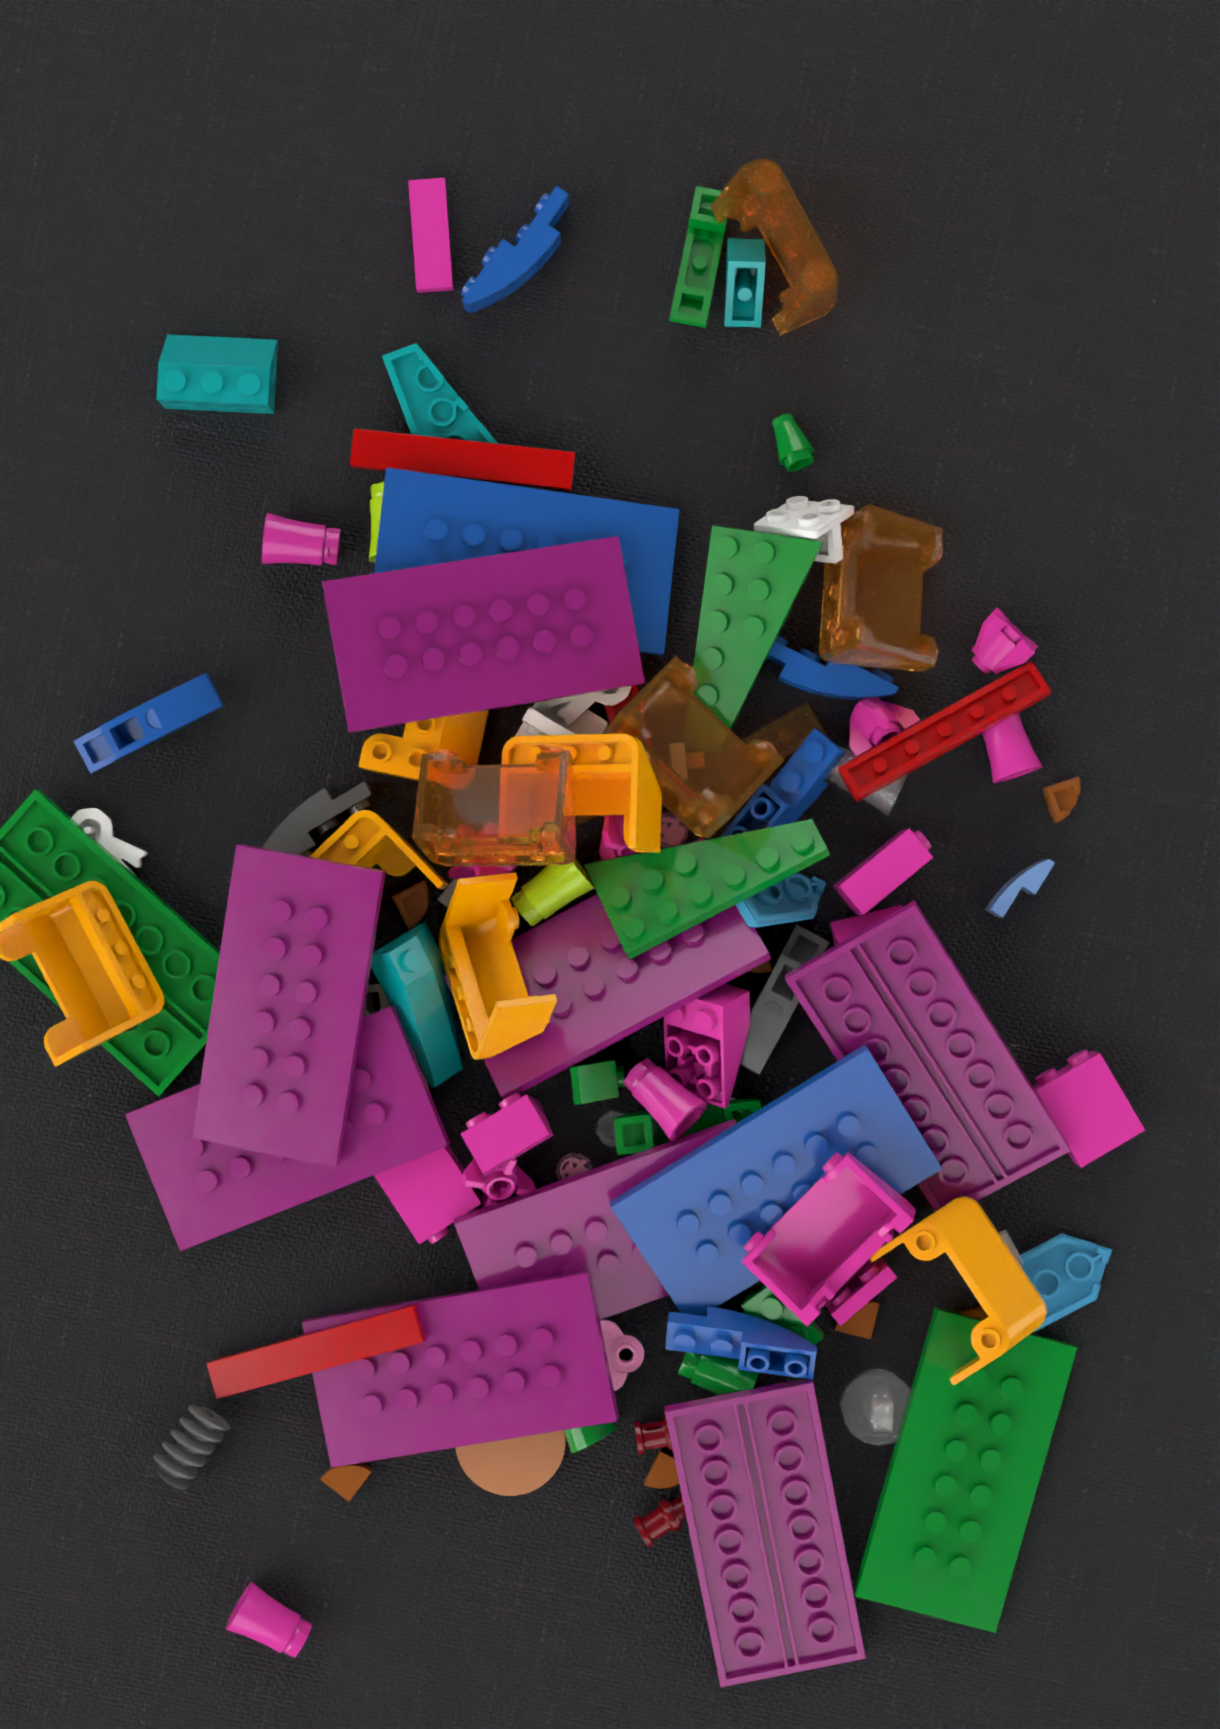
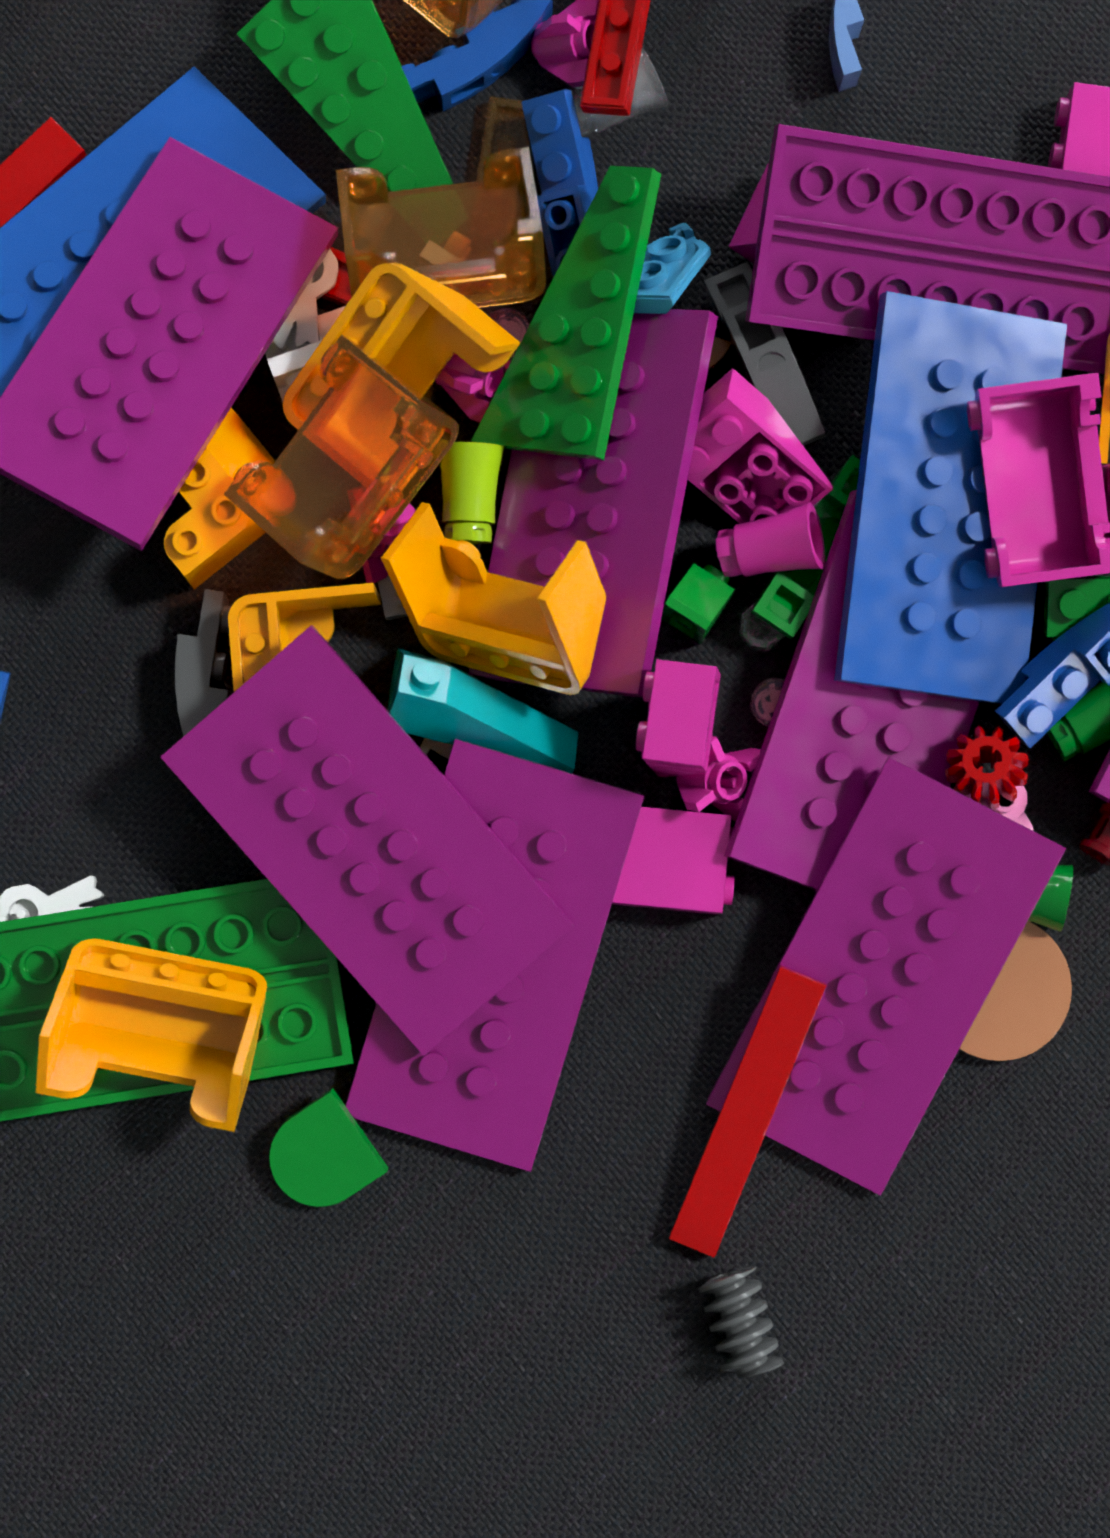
camera: 55 degrees left, 5 degrees down
(92, 1122) = (323, 1154): none -> green tile
(268, 1622) = (990, 1390): dark pink plant -> none
(346, 1478) = (904, 1190): dark orange tile -> none
(413, 903) = (369, 647): dark orange tile -> none
(635, 1345) = (1004, 759): none -> red gear
(884, 870) = (720, 147): dark pink brick -> none

